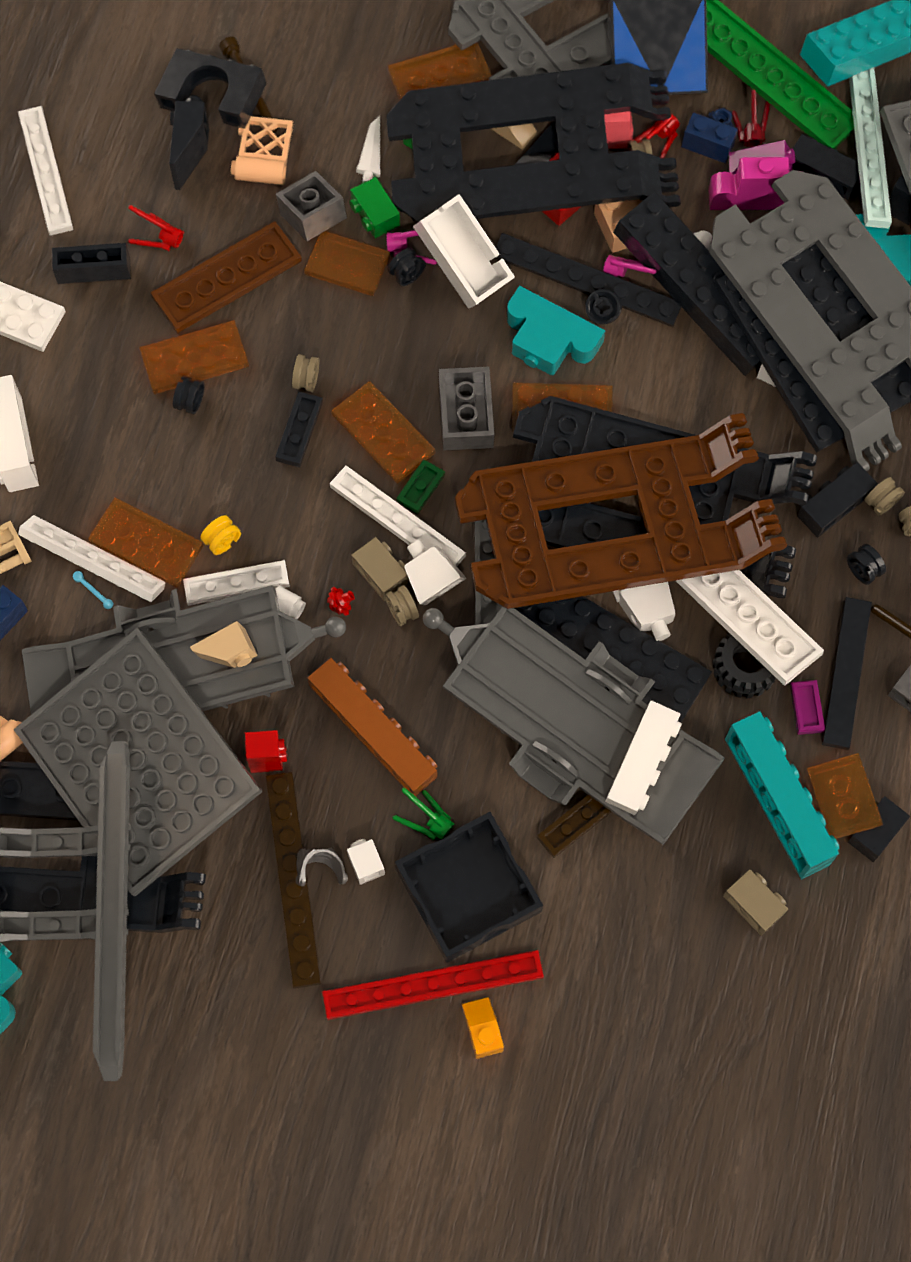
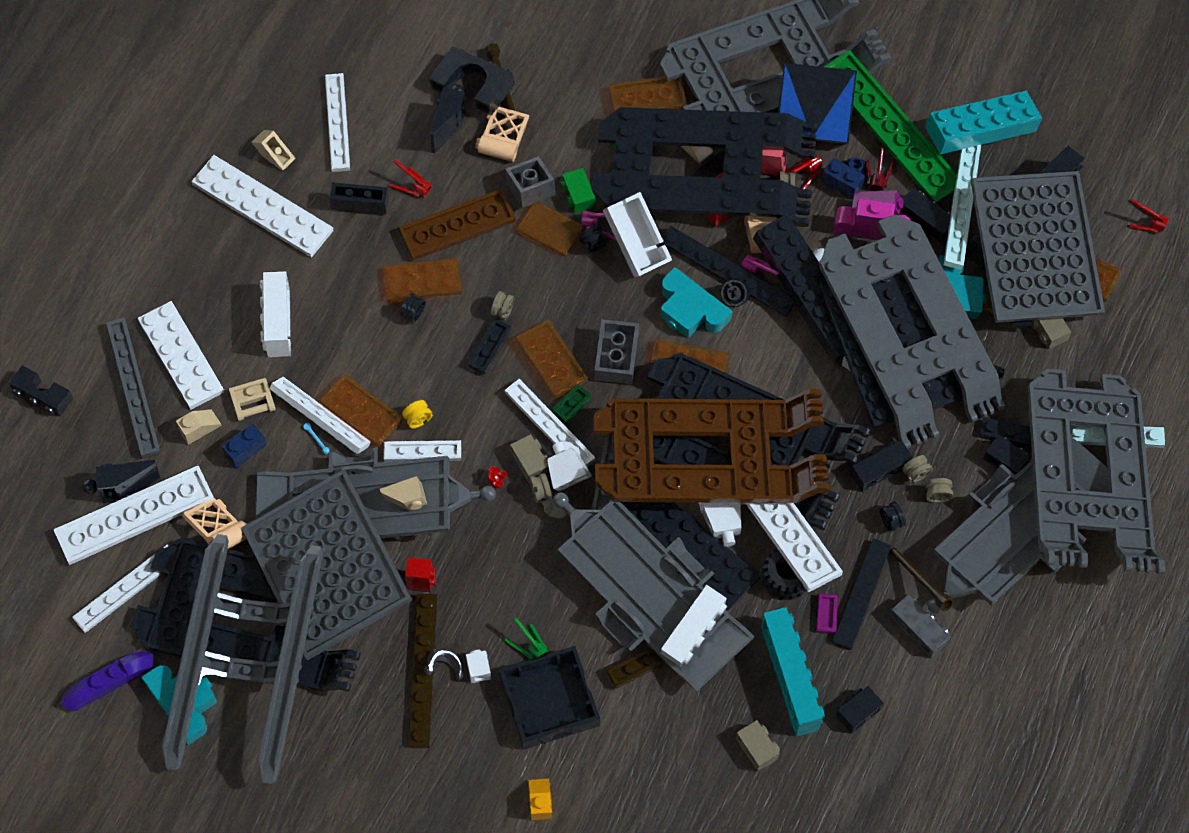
camera: 10 degrees right, 5 degrees down
(289, 602) = (458, 471): white brick -> none
(370, 158) = (582, 152): white bar -> none
(373, 727) = (502, 572): dark orange brick -> none
(432, 984) = (510, 762): red tile -> none
(844, 796) = (838, 681): clear orange tile -> none

